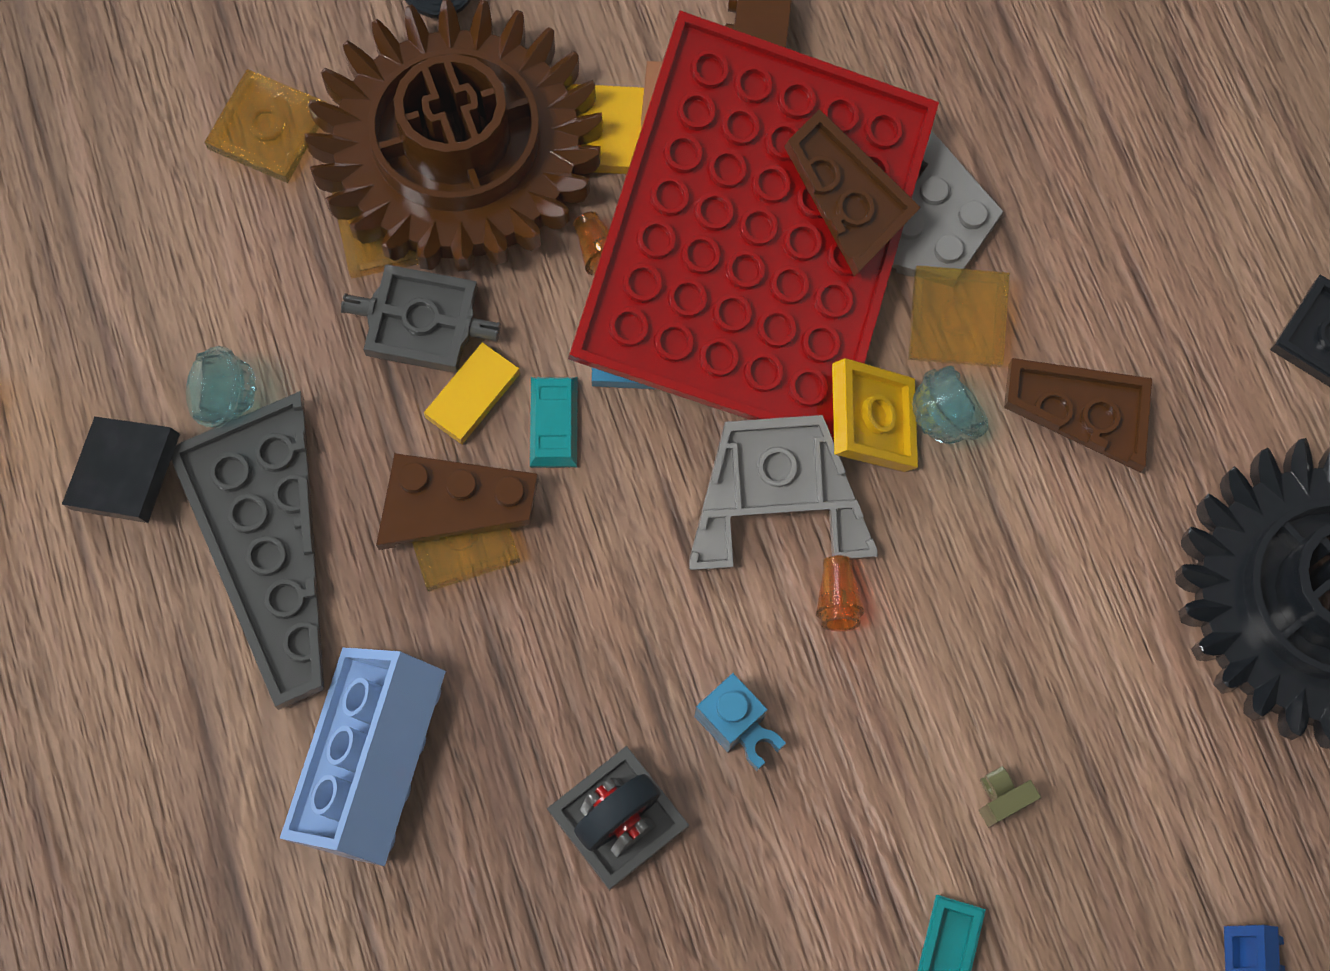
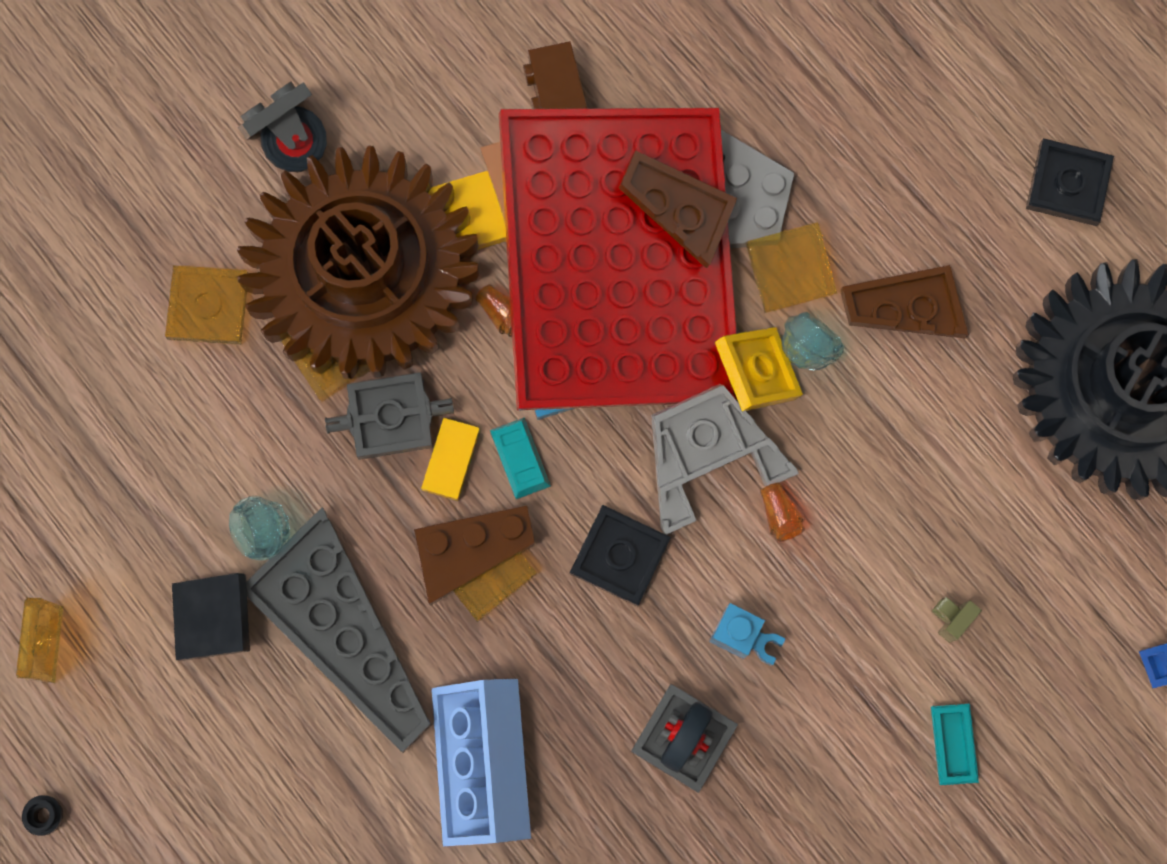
camera: 20 degrees left, 5 degrees up
(626, 575) = (620, 555): none -> black tile

